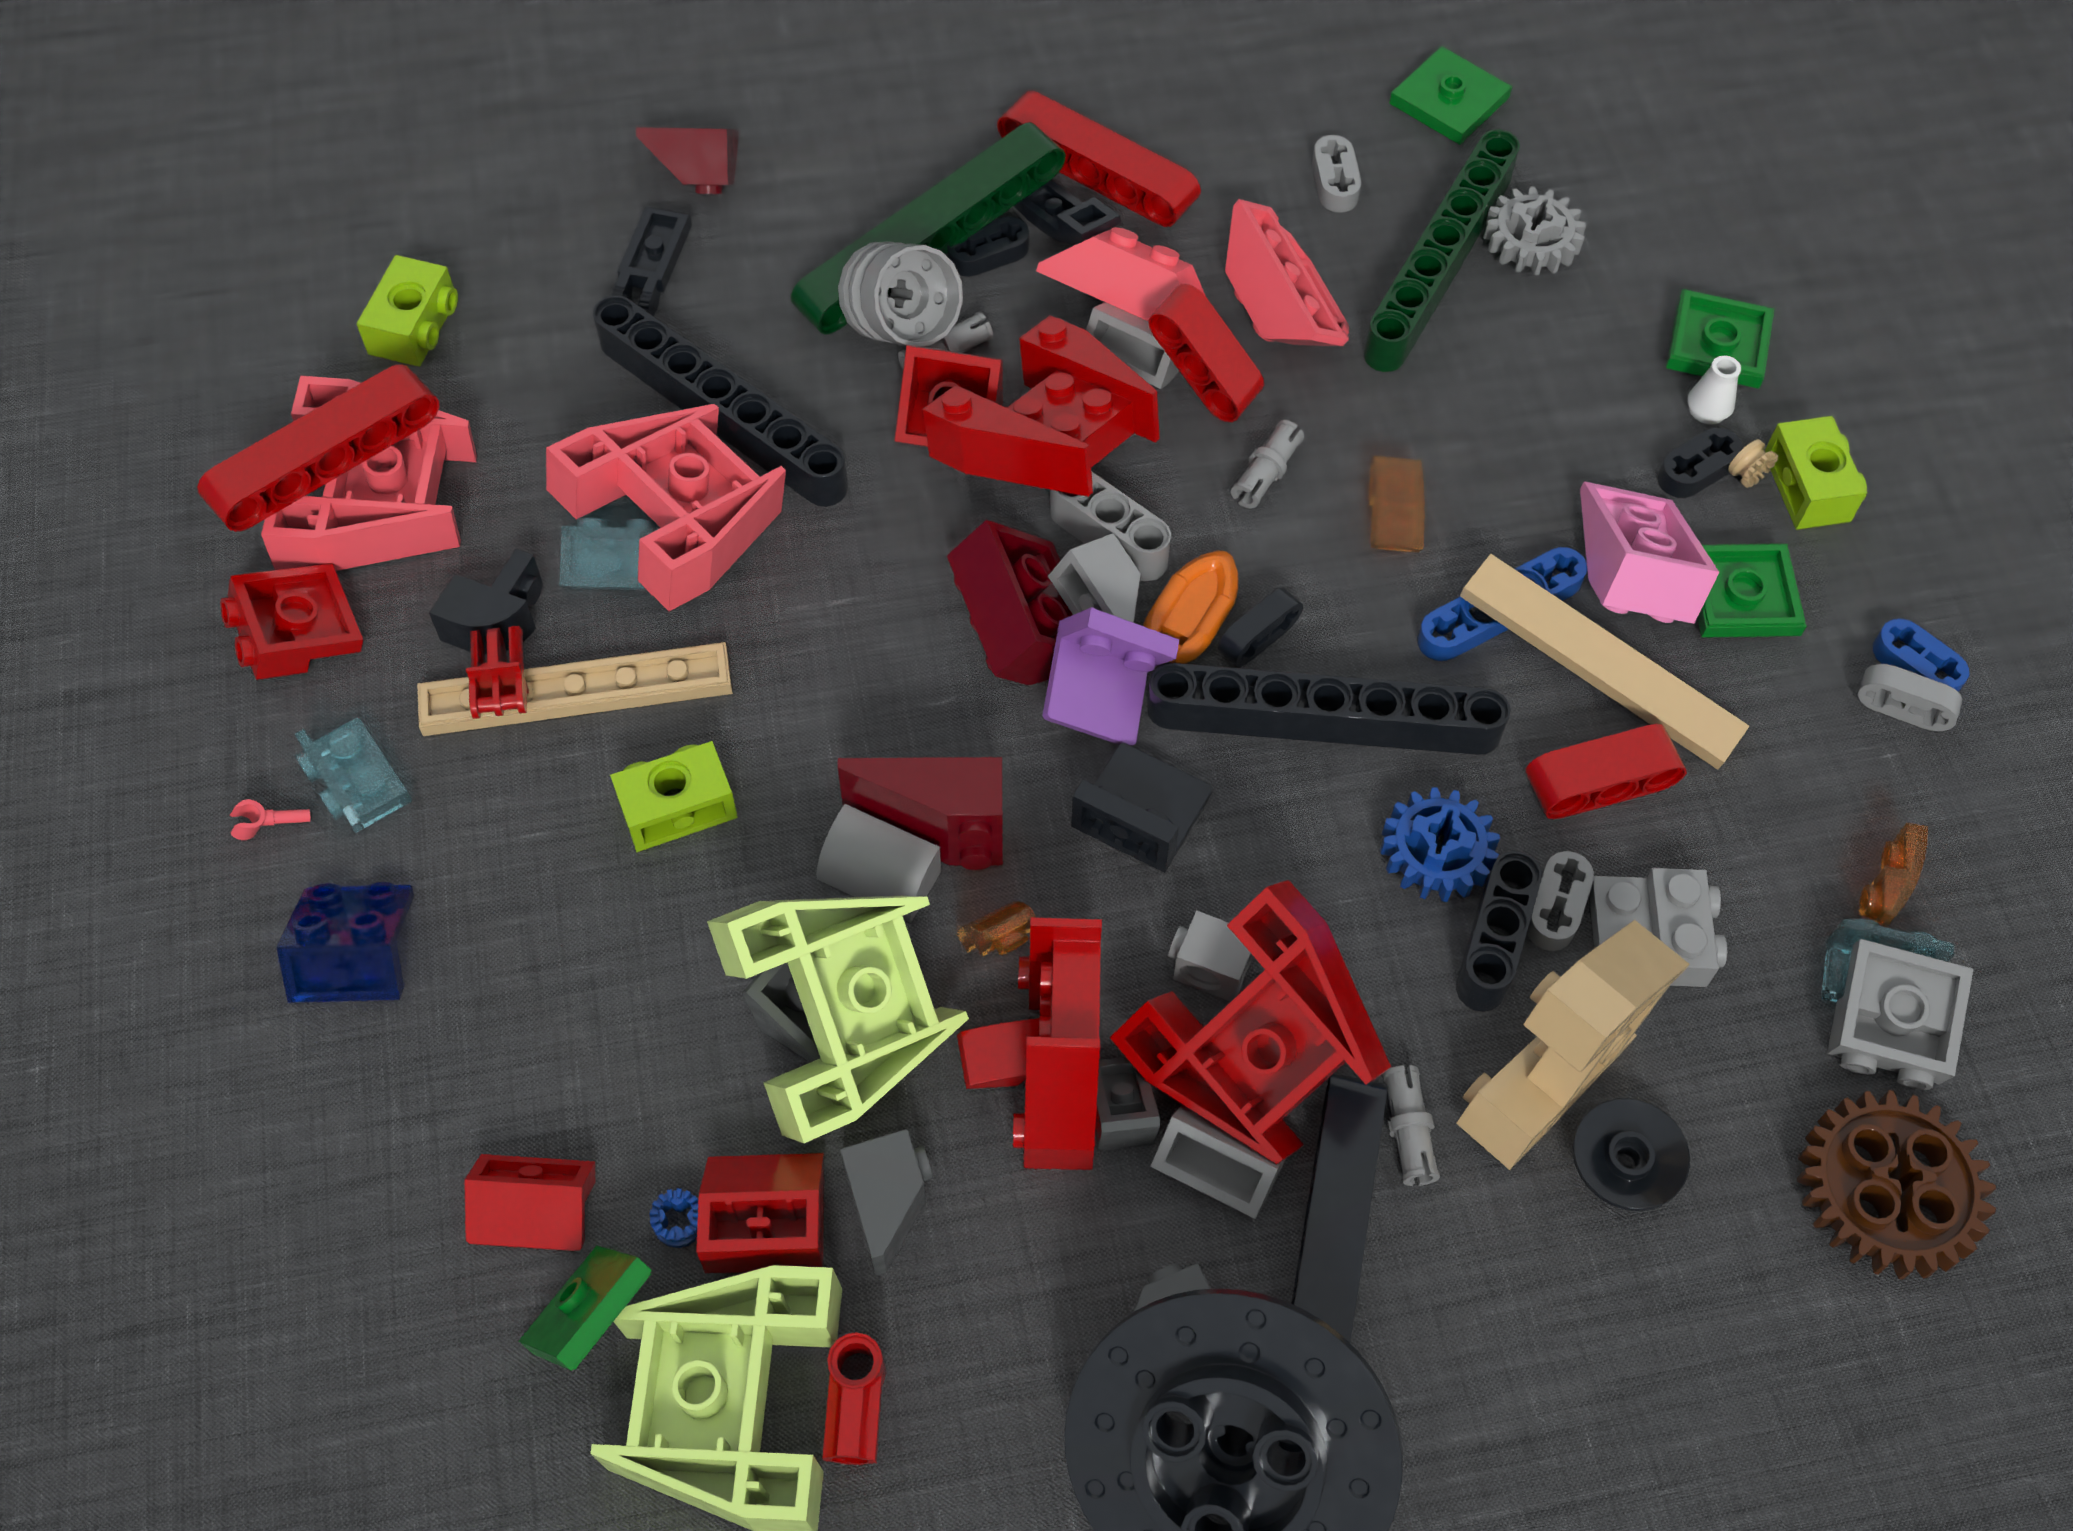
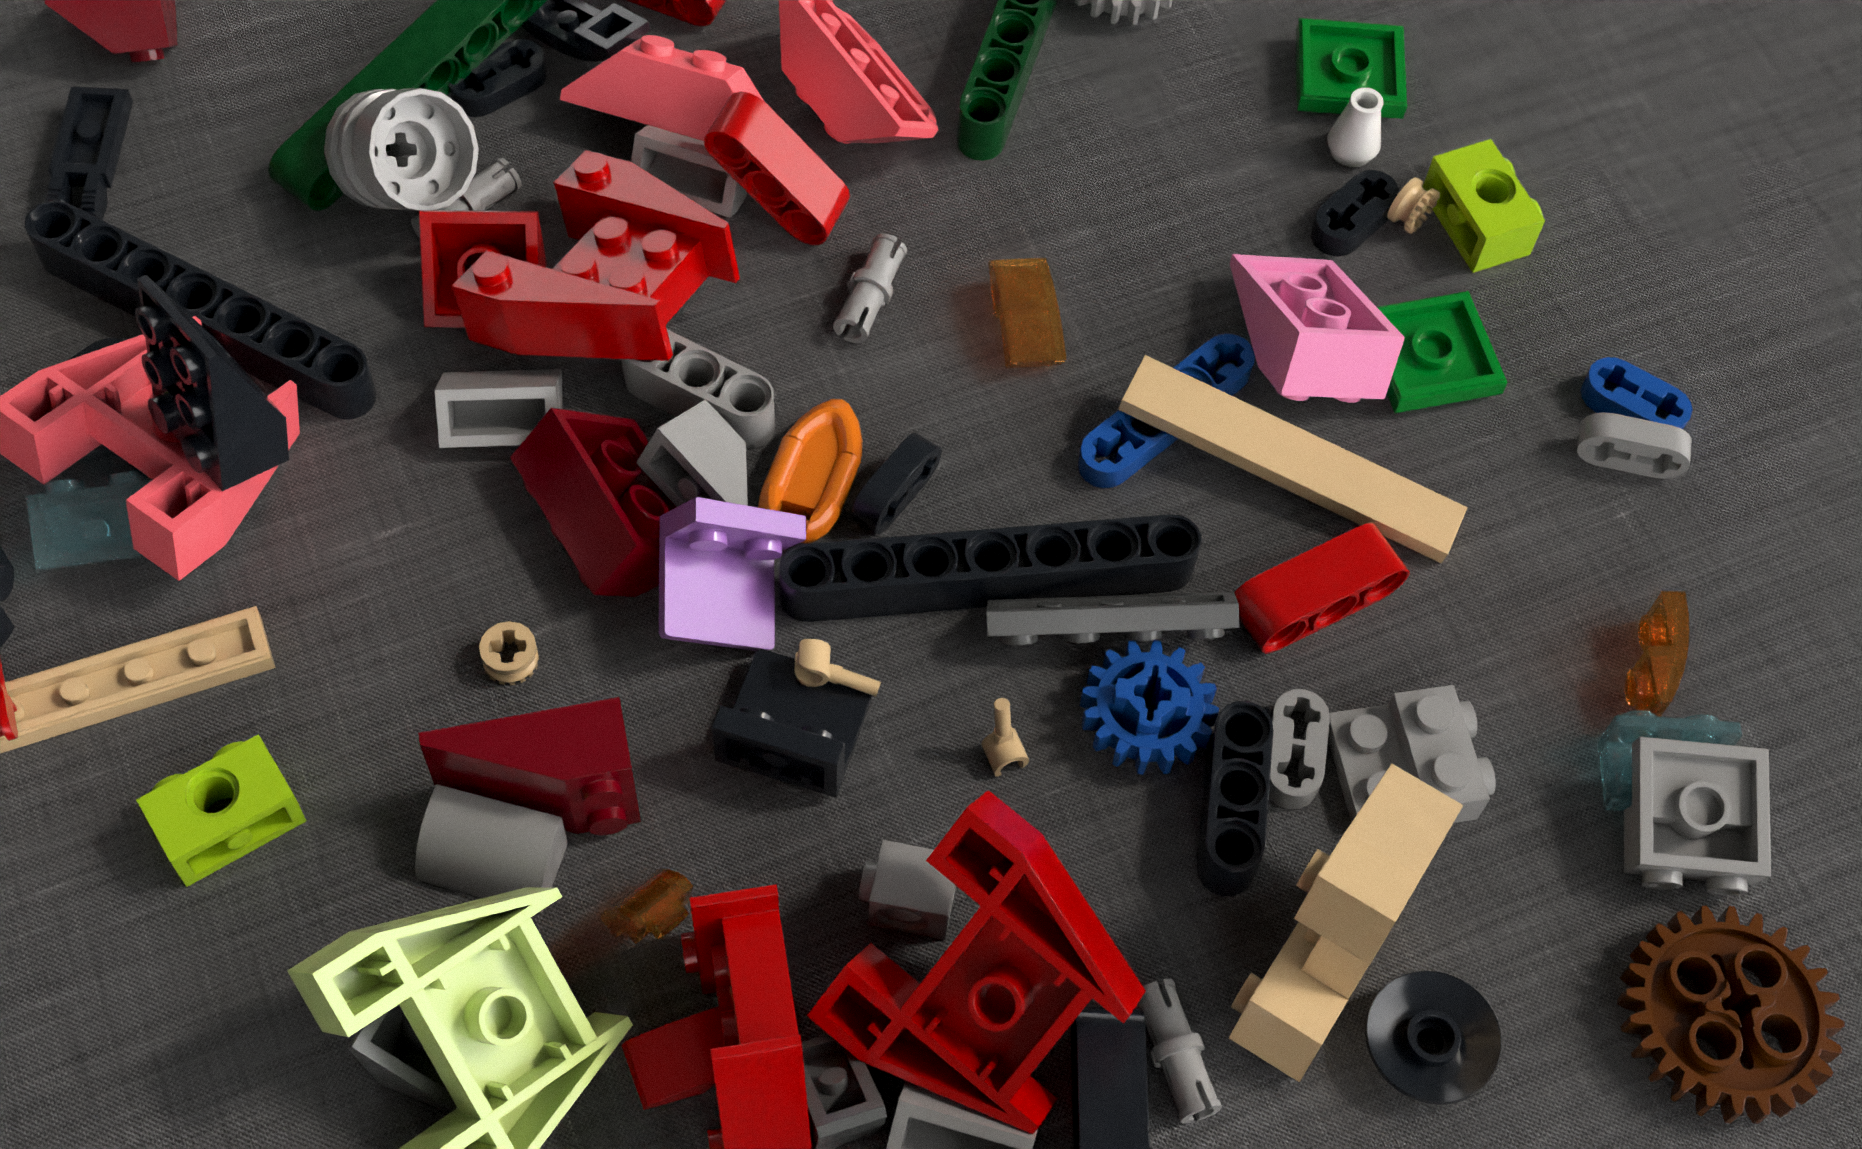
camera: 15 degrees left, 0 degrees up
(714, 466) = (206, 396): none -> black slope
(930, 720) = (523, 661): none -> tan bush
(940, 512) = (494, 405): none -> light grey brick
(1165, 766) = (815, 670): none -> tan hand
(1312, 853) = (1004, 743): none -> tan hand
(1445, 768) = (1137, 615): none -> dark grey plate

